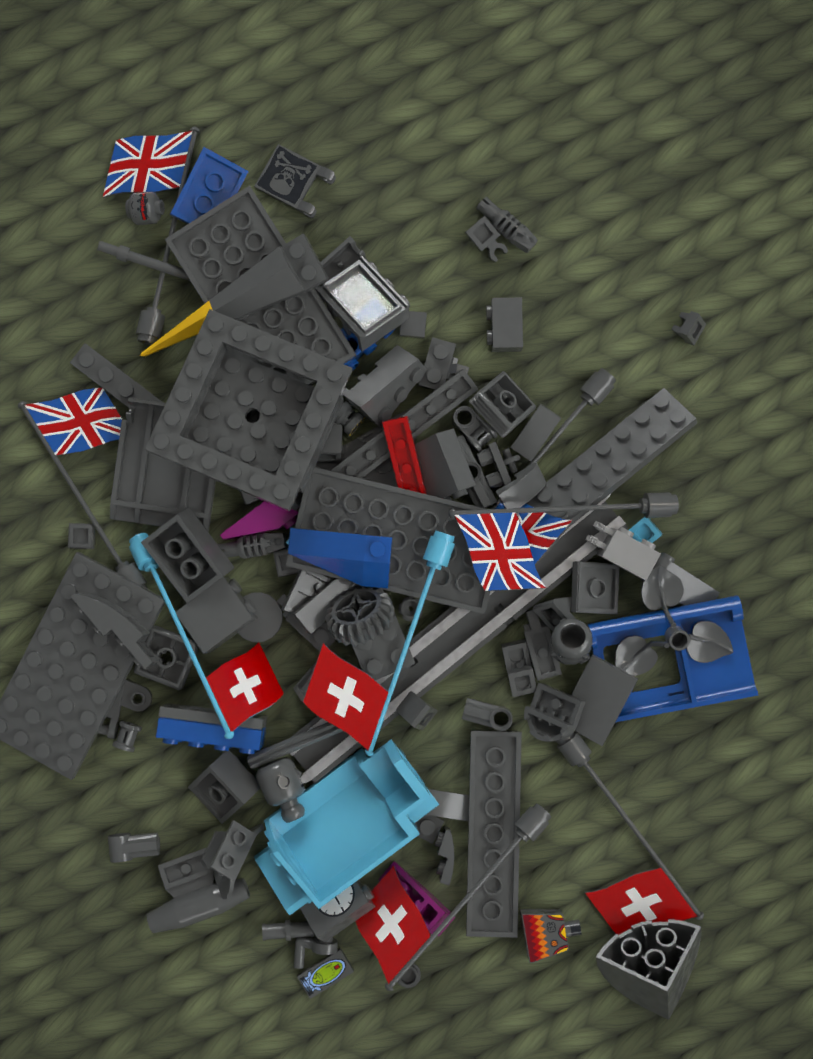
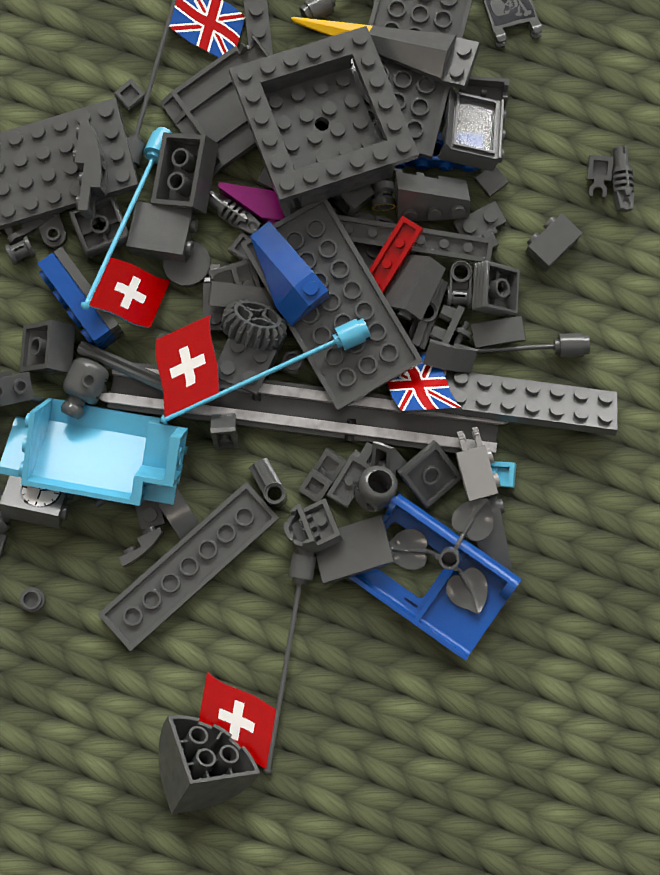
camera: 45 degrees right, 5 degrees down
(396, 925) = (58, 555): flag -> none
(430, 907) = (91, 556): magenta slope -> none
(501, 547) = (395, 374): flag -> none
(547, 932) = (153, 669): torso -> none

